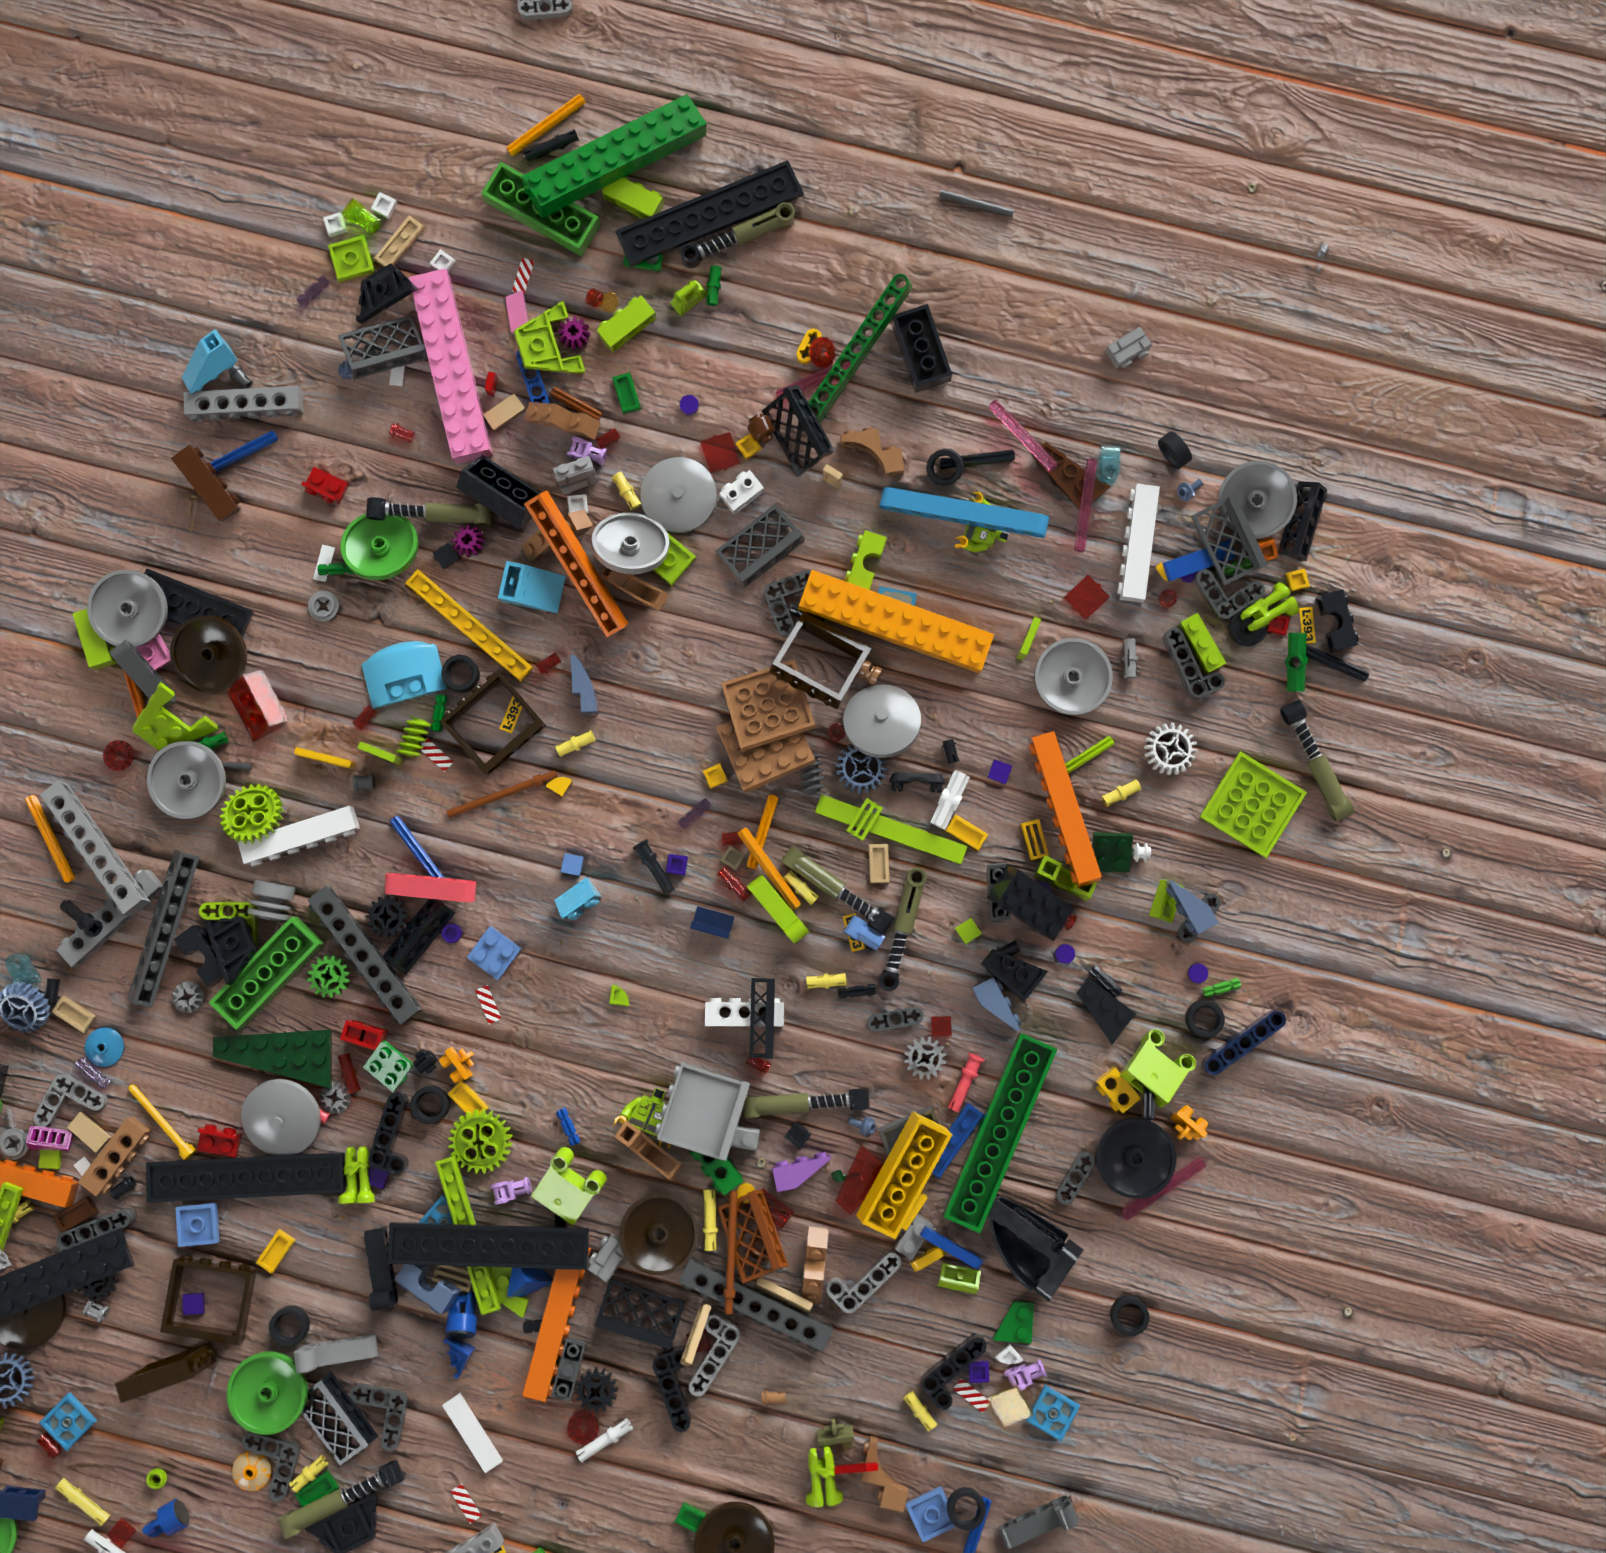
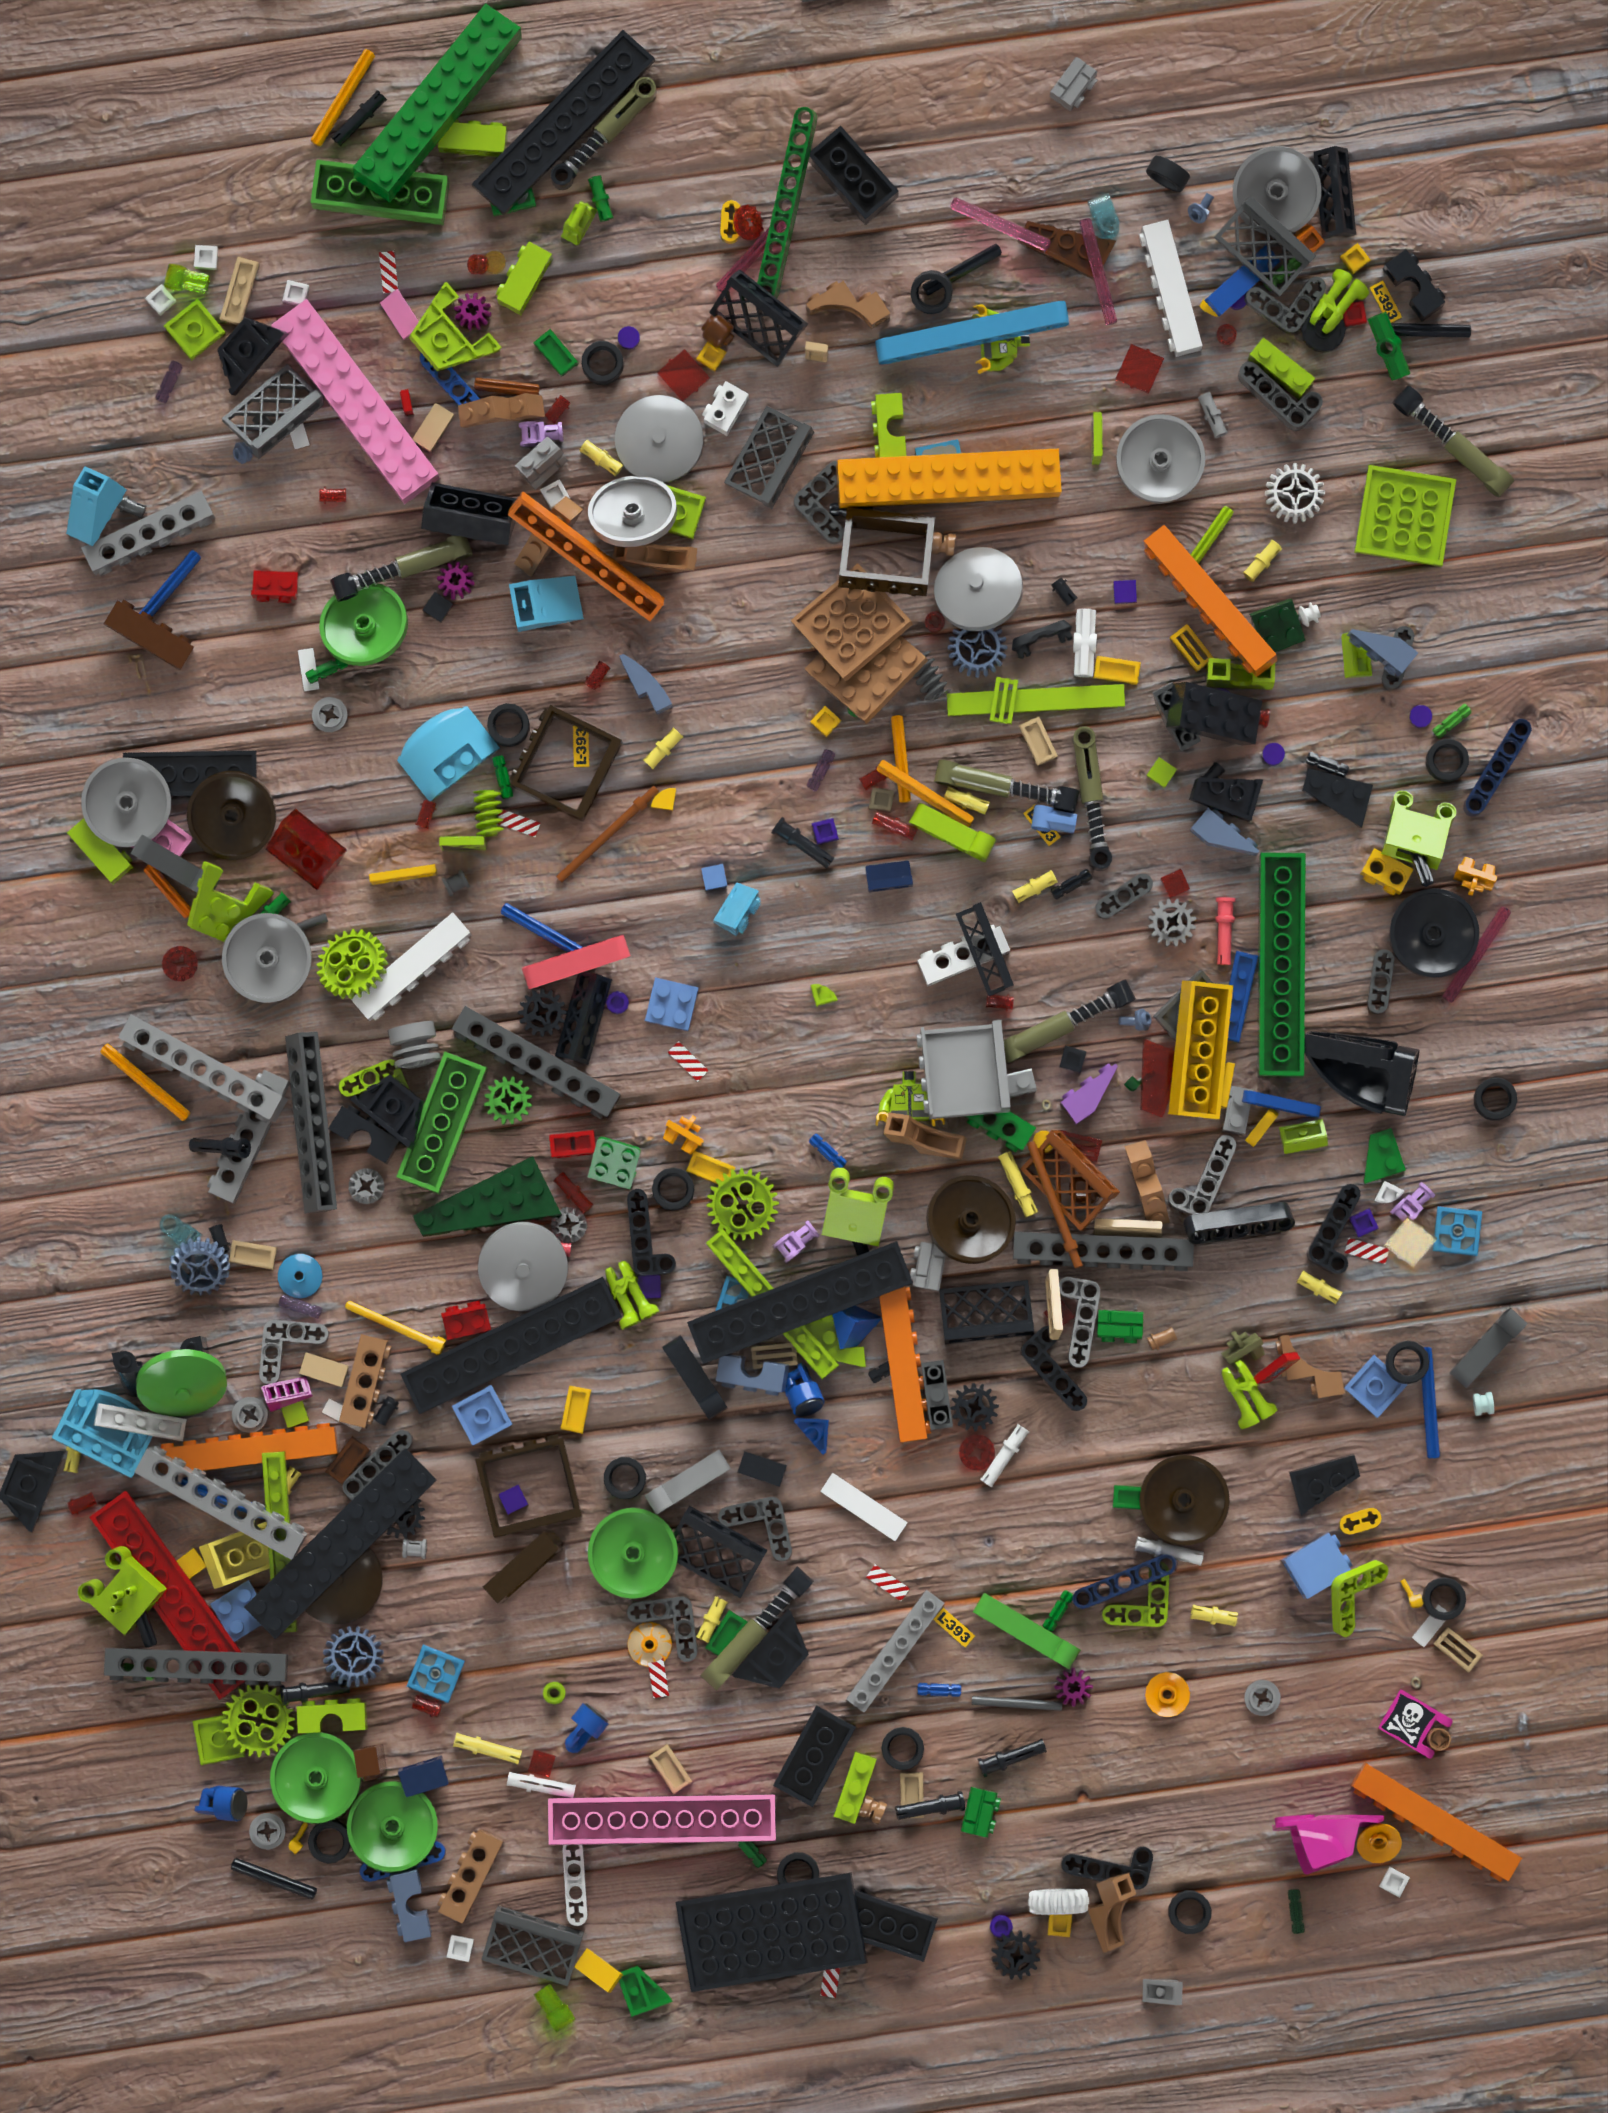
camera: 25 degrees left, 0 degrees up
(246, 1503) = (658, 1679): none -> sticker
(403, 1365) = (762, 1469): none -> black tile
(425, 1061) = (649, 1145): black gear -> none
(469, 625) = (494, 671): yellow tile -> none
(655, 402) = (606, 346): none -> black tyre
(743, 1373) = (1119, 1324): none -> green brick
(875, 1331) = (1239, 1223): none -> black beam

